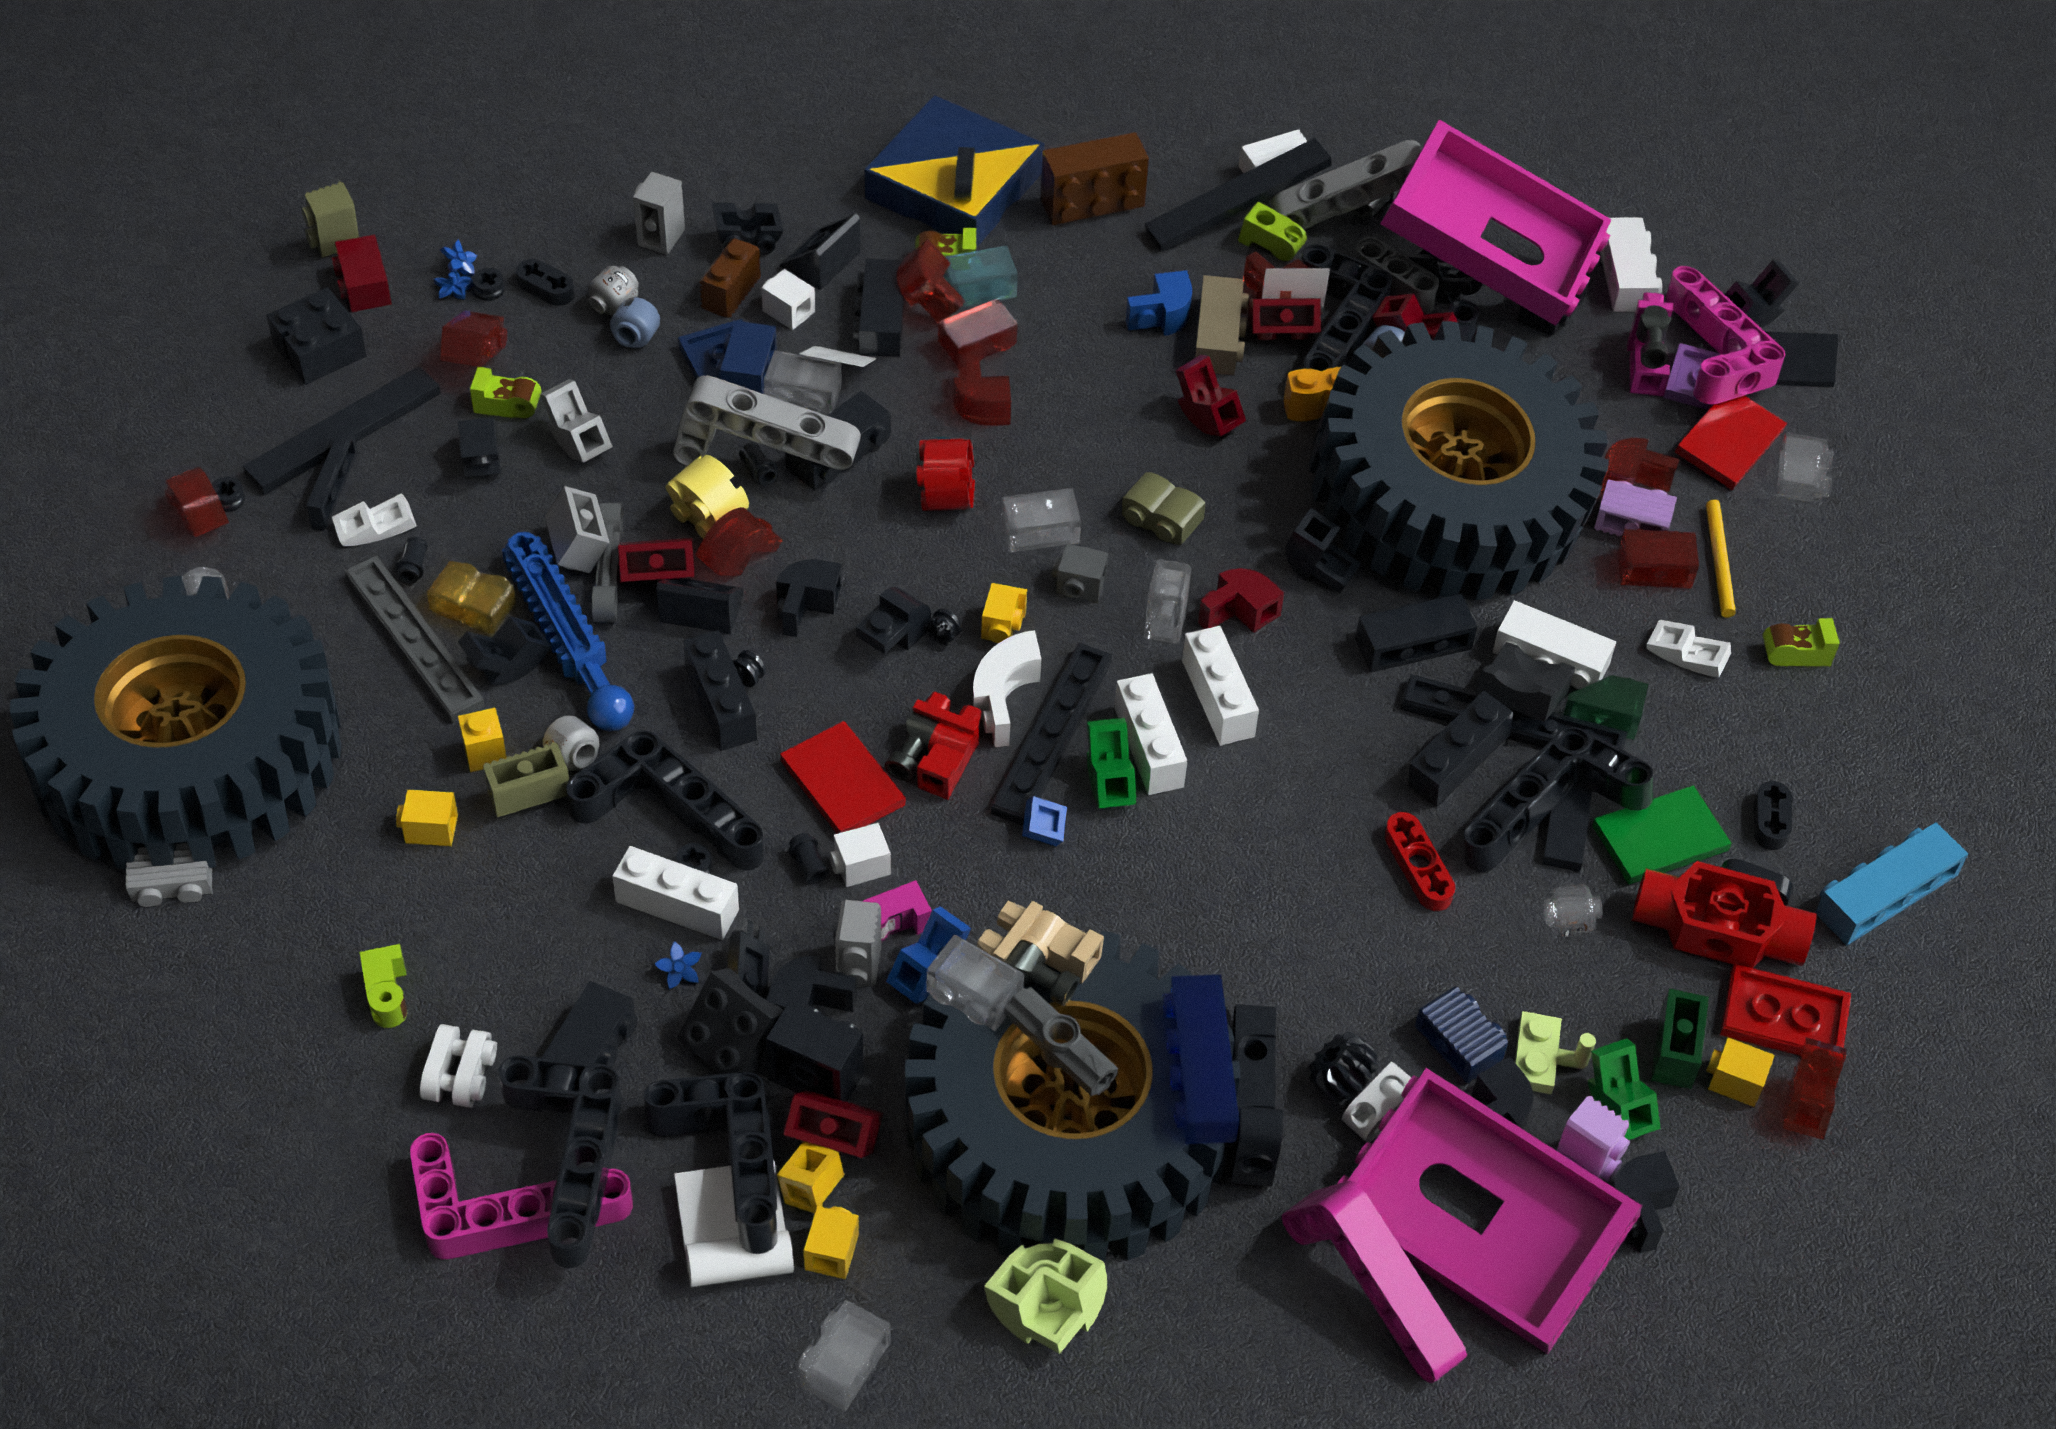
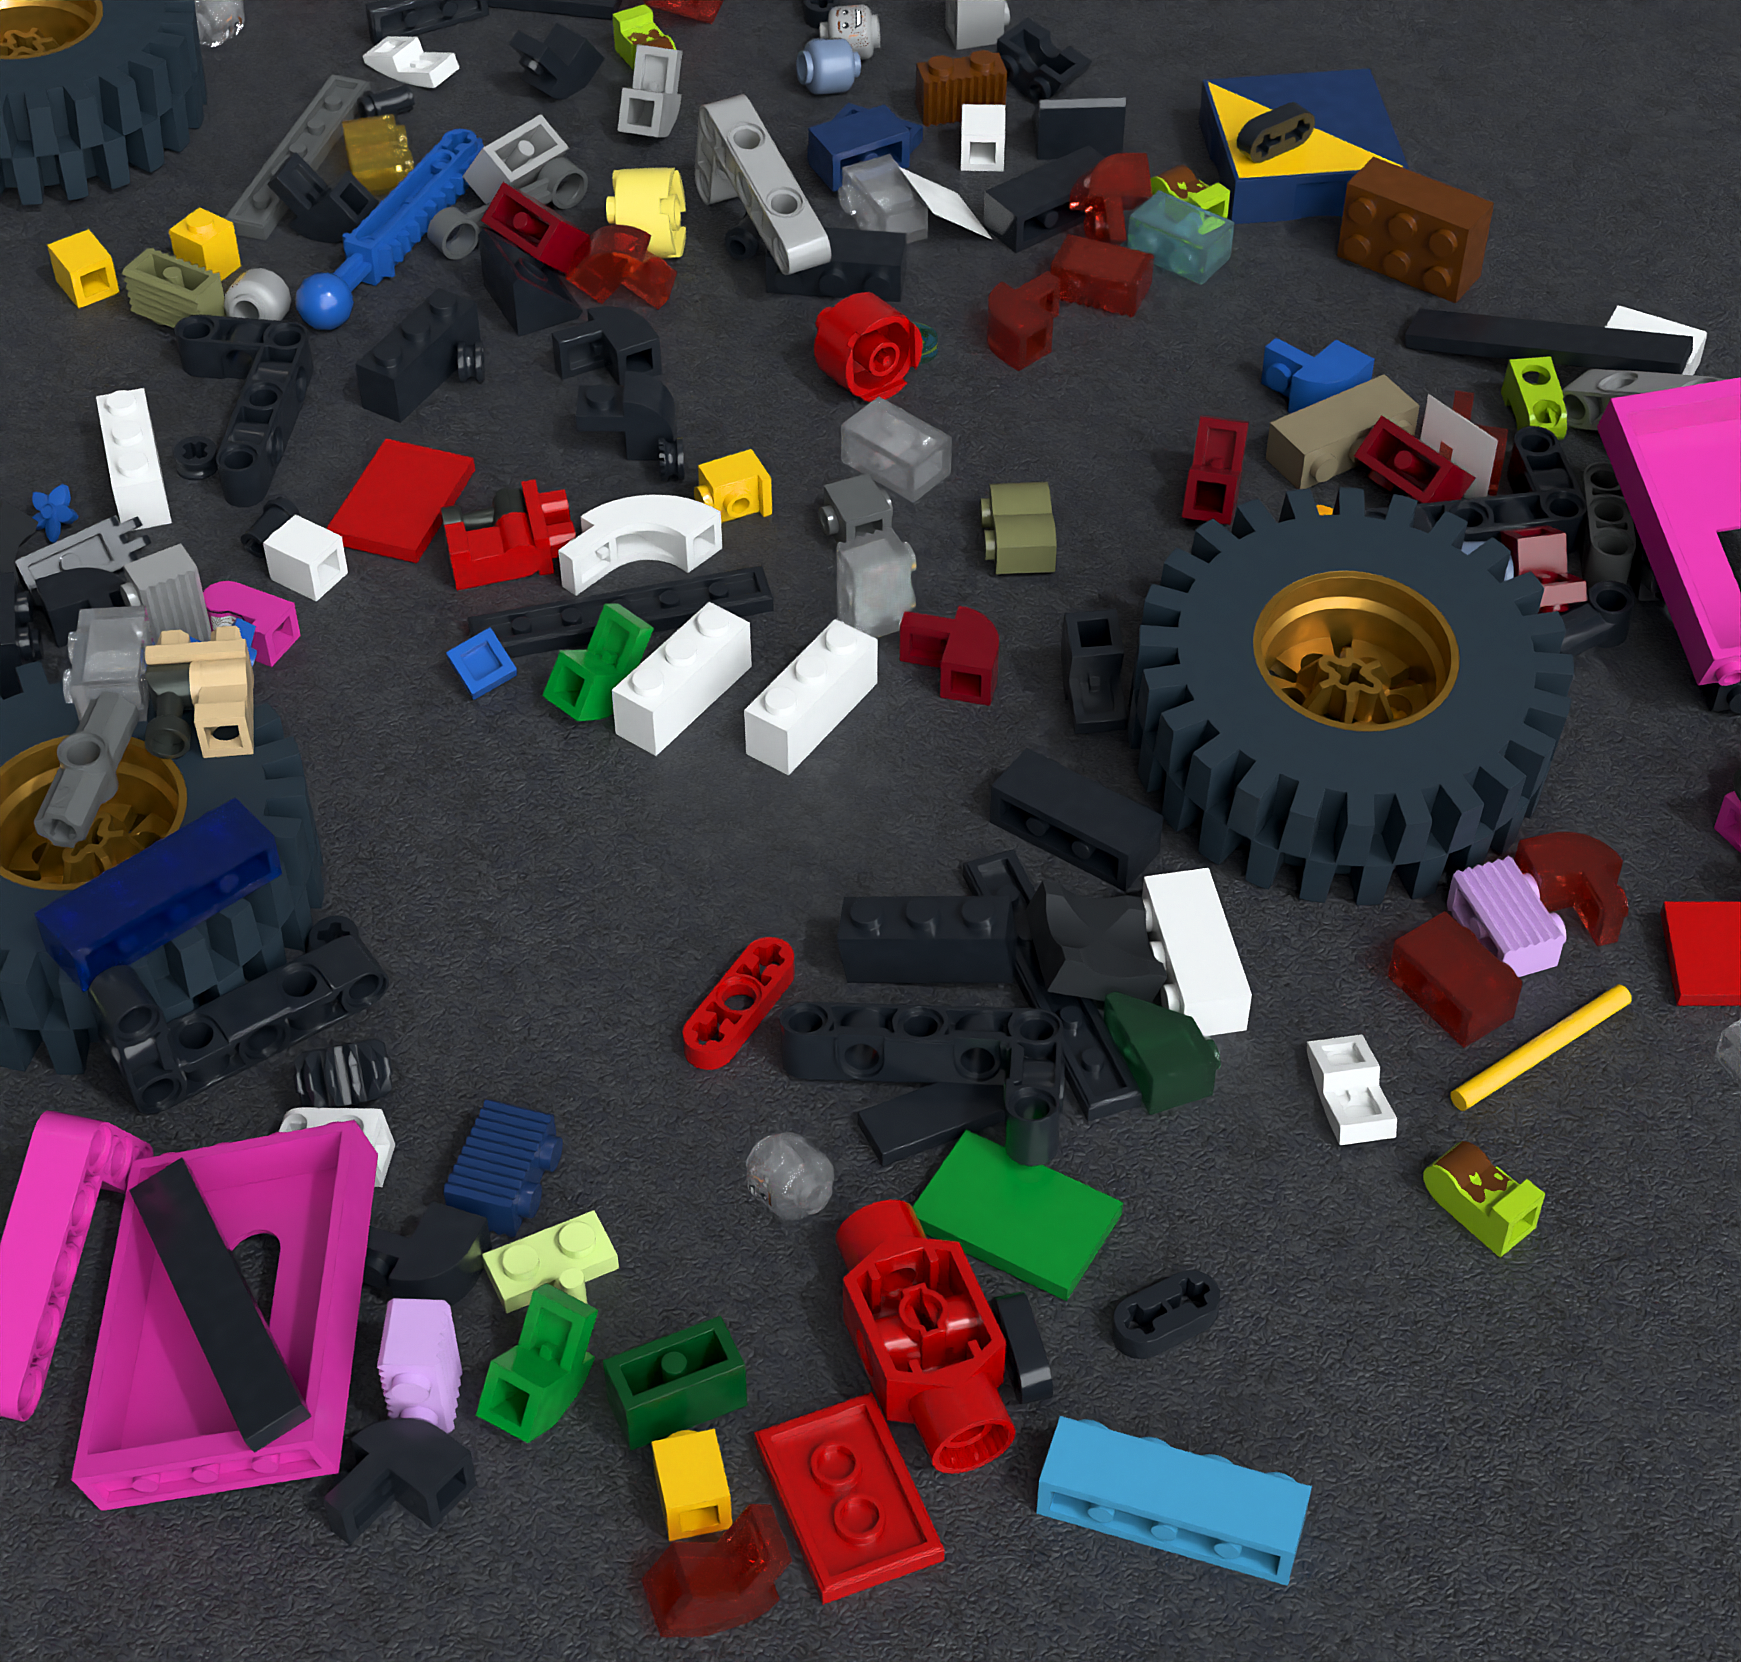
camera: 55 degrees right, 5 degrees down
(1499, 1203) = (220, 1306): none -> black tile

